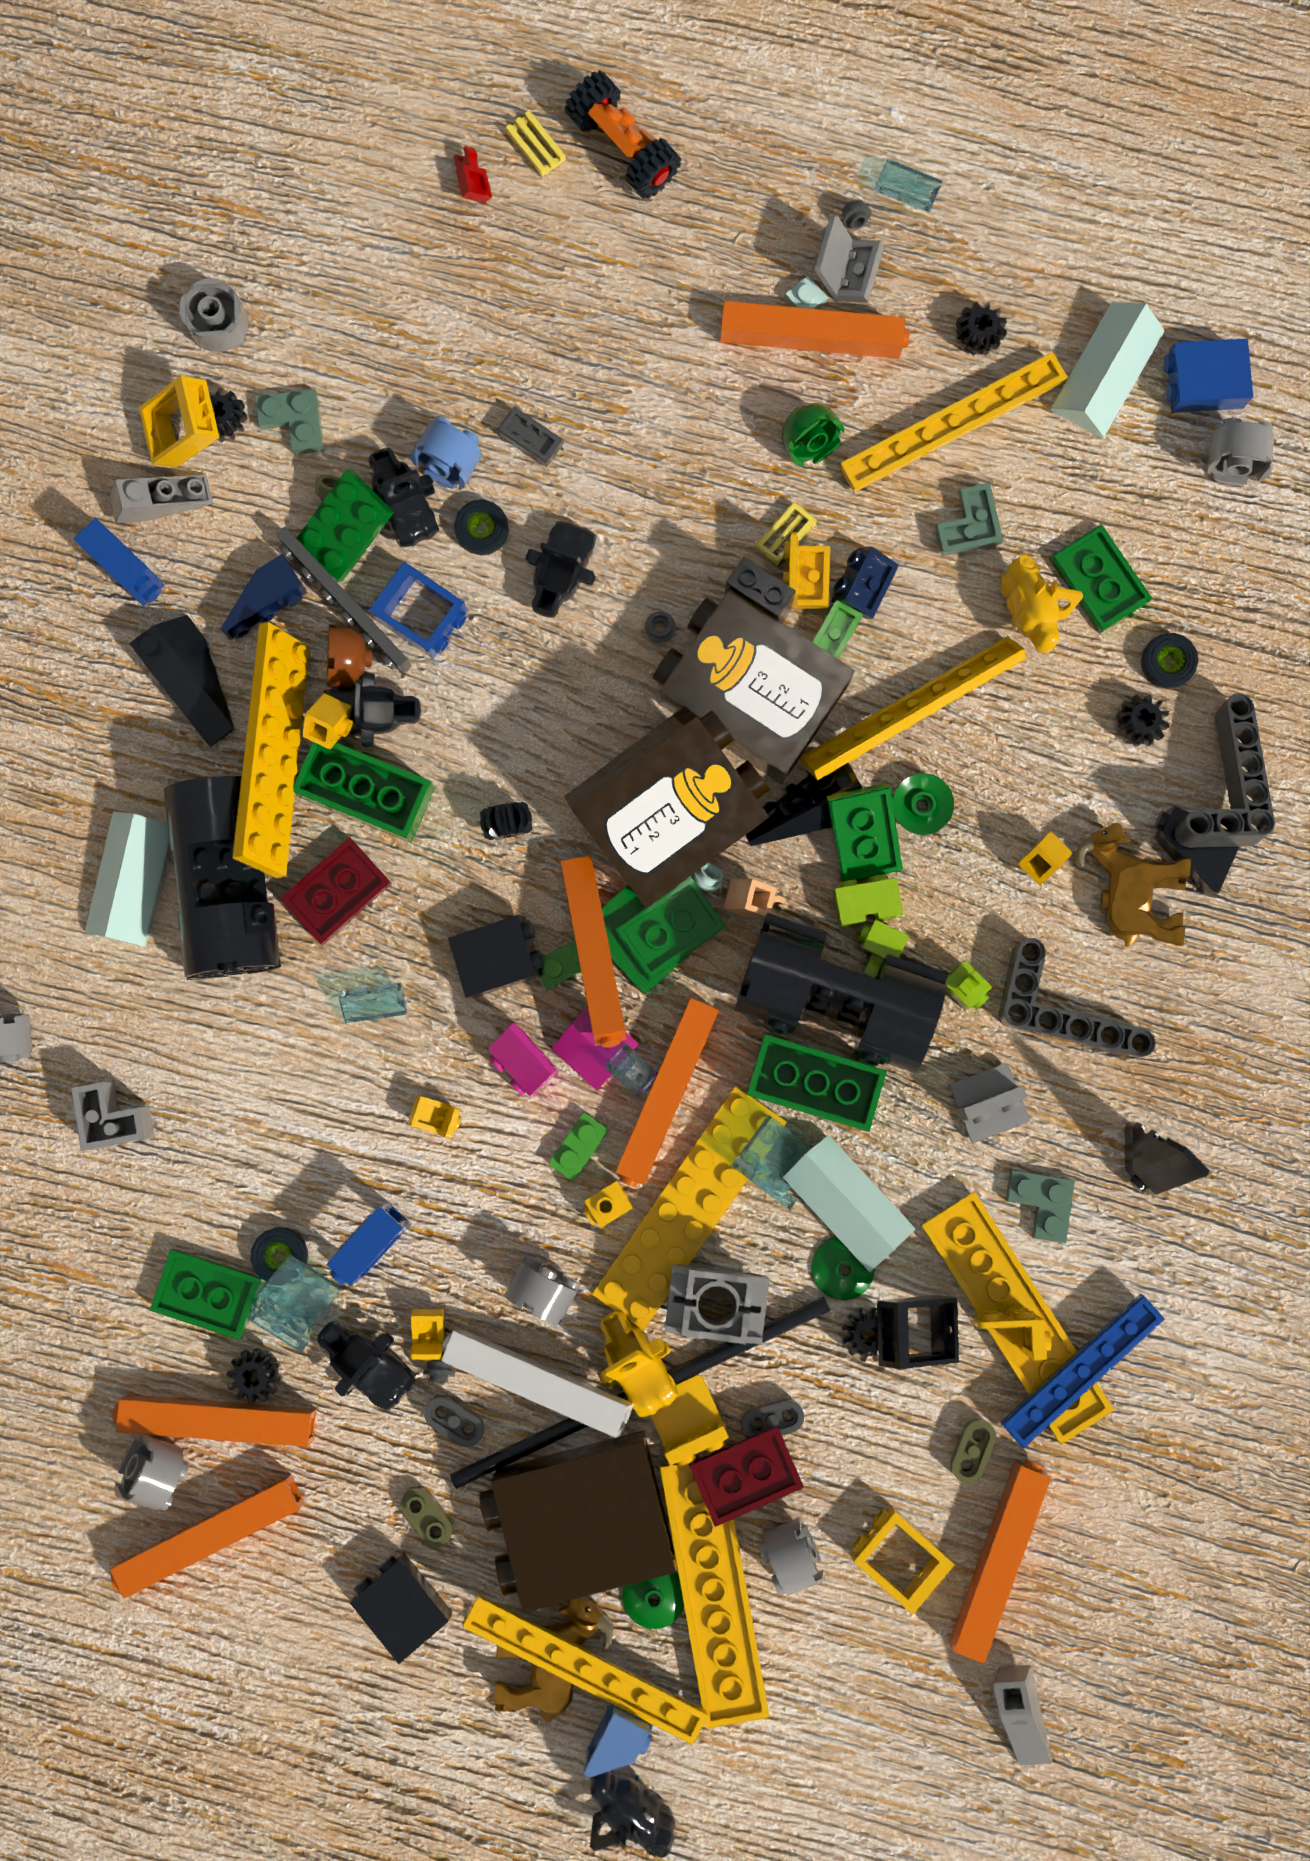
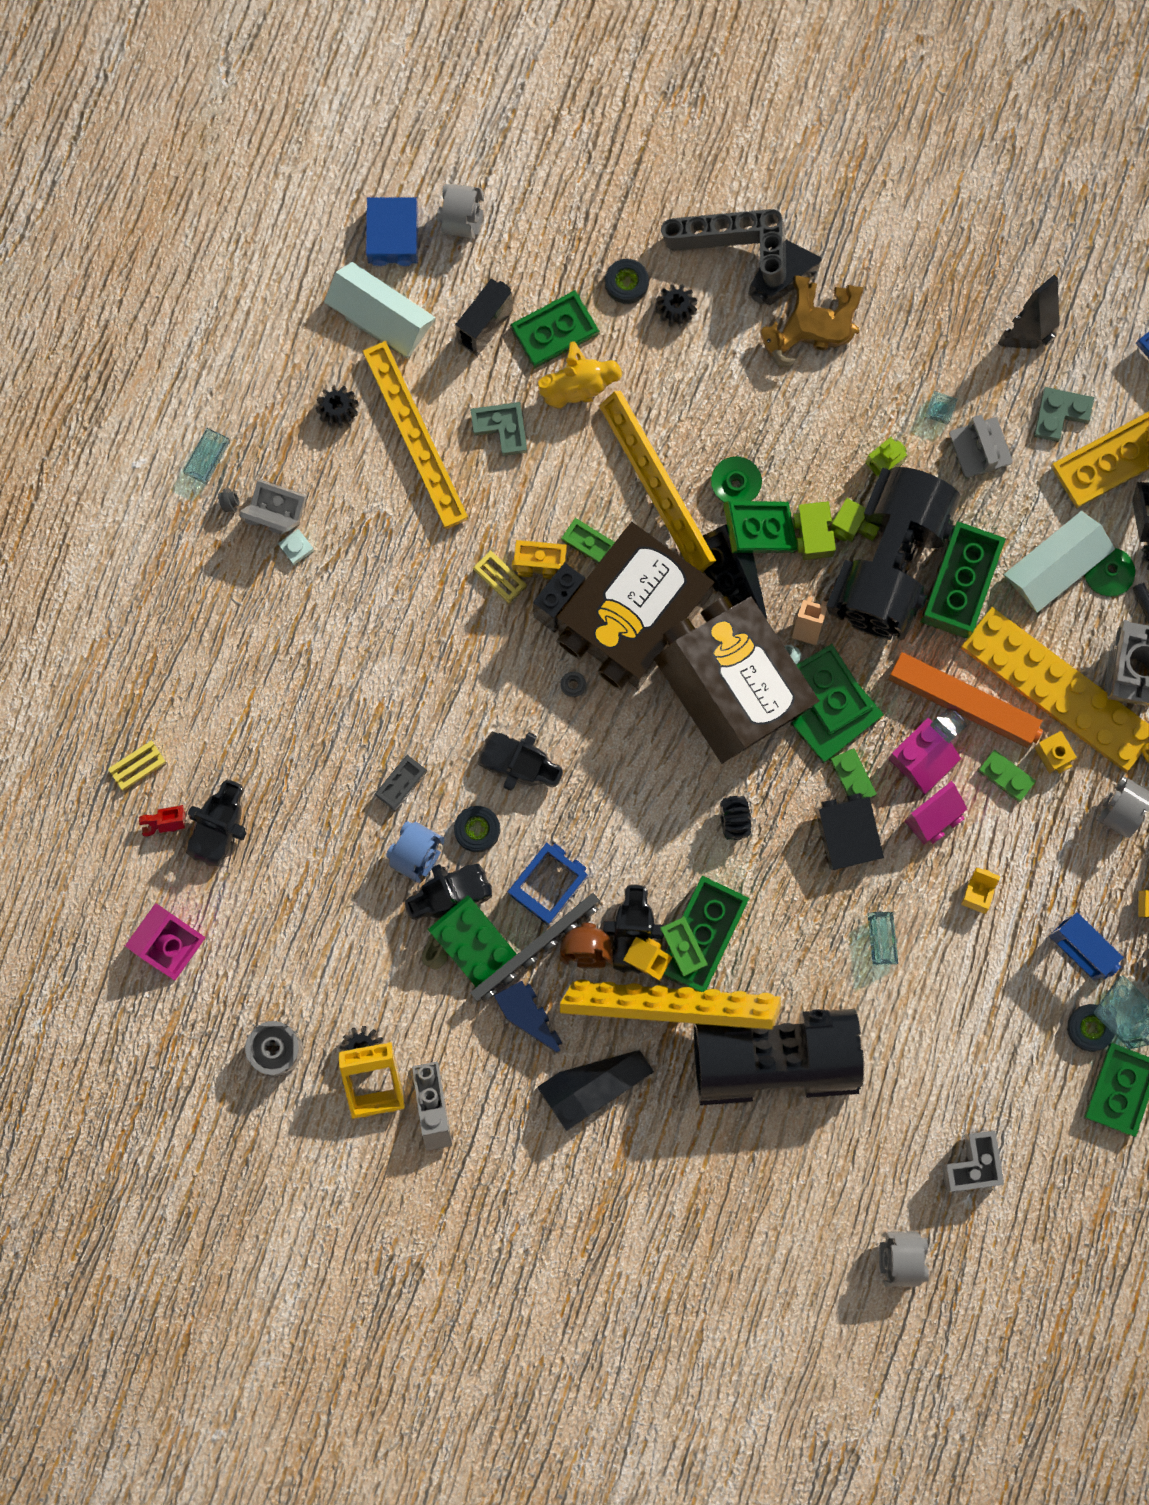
camera: 90 degrees left, 5 degrees down
(120, 562) = (493, 1137): blue brick -> none
(129, 879) = (768, 1145): light aqua slope -> none
(299, 412) = (362, 981): sand green plate -> none
(332, 188) = (165, 941): none -> dark pink slope
(335, 891) = (786, 966): dark red plate -> none
(341, 761) = (683, 946): none -> bright green plate
(468, 232) = (216, 825): none -> black piece
(593, 952) = (851, 748): orange brick -> none
(596, 105) = (141, 686): black plate -> none
(769, 1158) = (1022, 621): clear light blue bracket -> none
(811, 433) = (417, 549): green cylinder -> none
(813, 329) = (327, 542): orange brick -> none
(865, 580) = (546, 515): dark blue bracket -> none
(1037, 1051) = (941, 407): none -> clear light blue plate
(1045, 858) = (786, 388): yellow brick -> none
(1061, 1018) = (917, 386): dark grey beam -> none
(1107, 488) = (484, 316): none -> black brick

